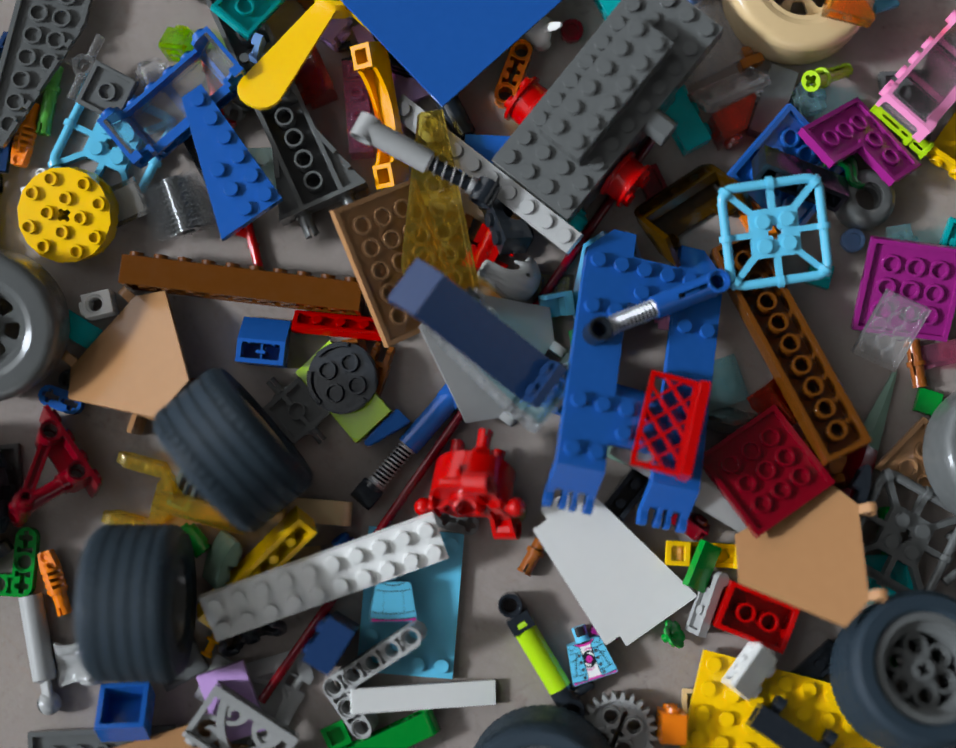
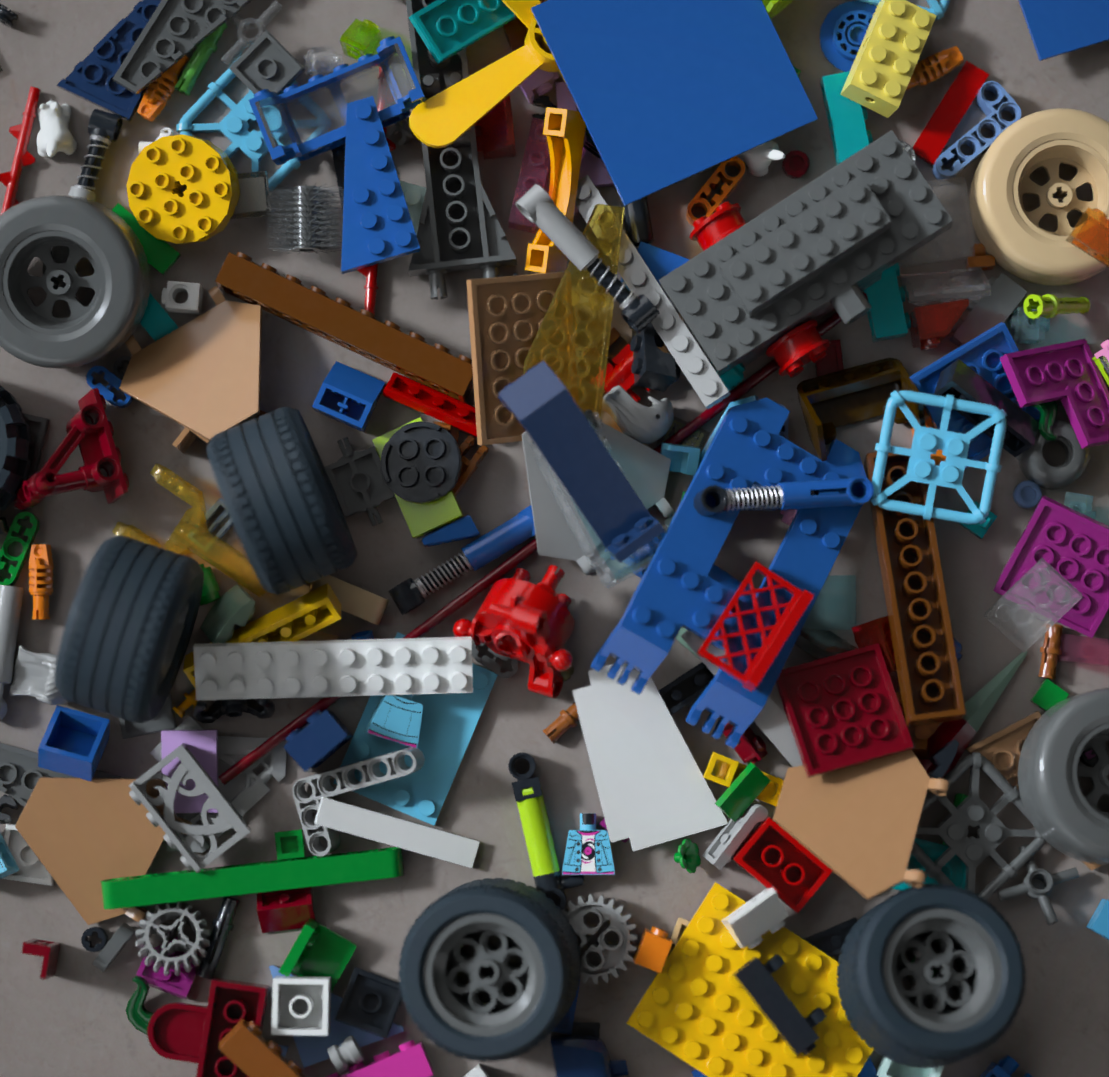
camera: 15 degrees right, 0 degrees up
(63, 273) = (158, 252): none -> green tile
(259, 44) = (448, 70): medium blue tile -> none

